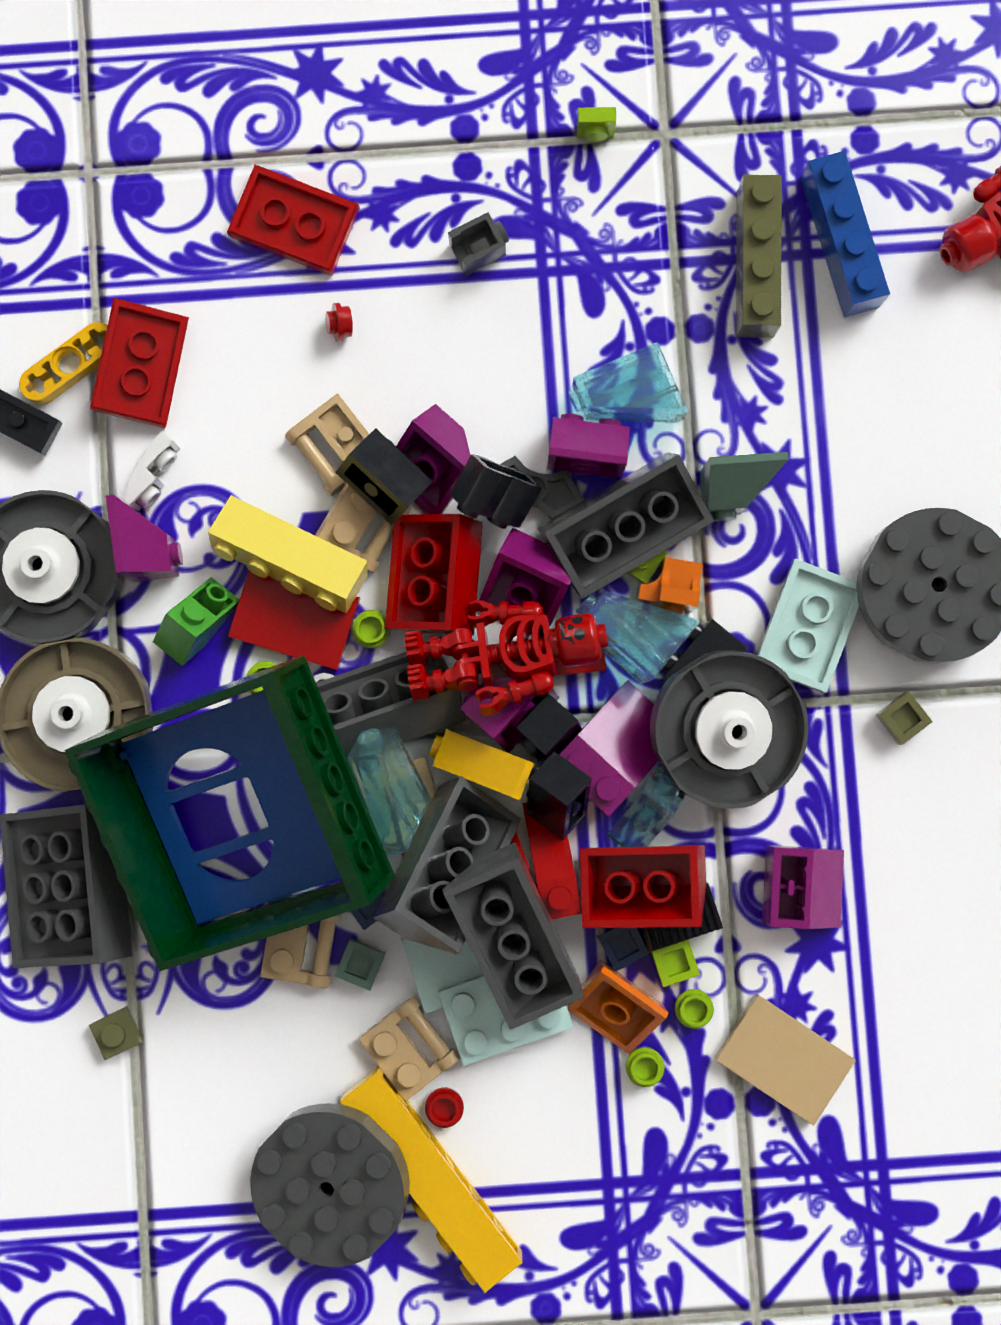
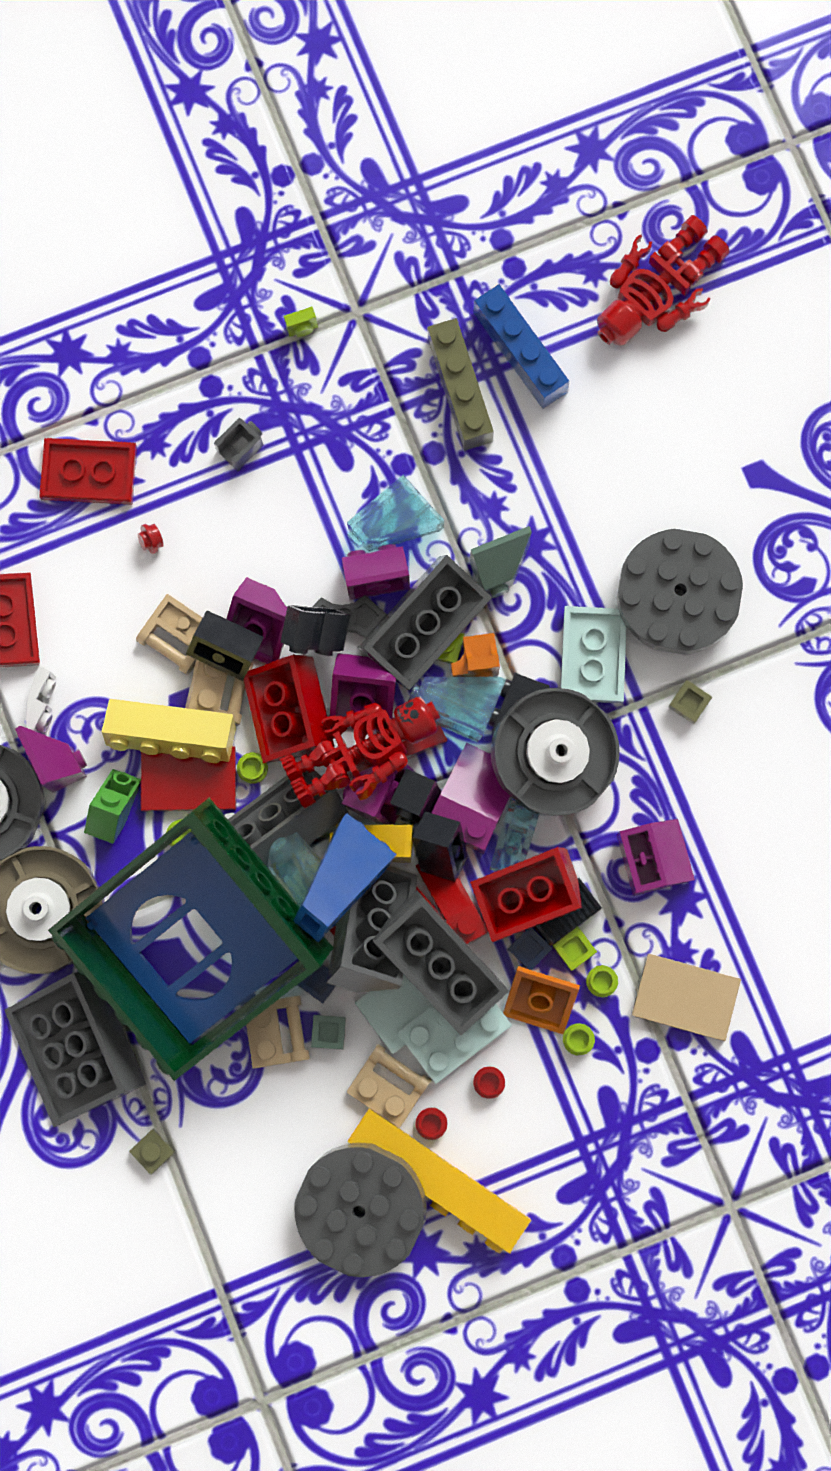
camera: 15 degrees left, 5 degrees down
(434, 797) = (345, 873): none -> slope
(525, 1082) = (489, 1082): none -> red plate

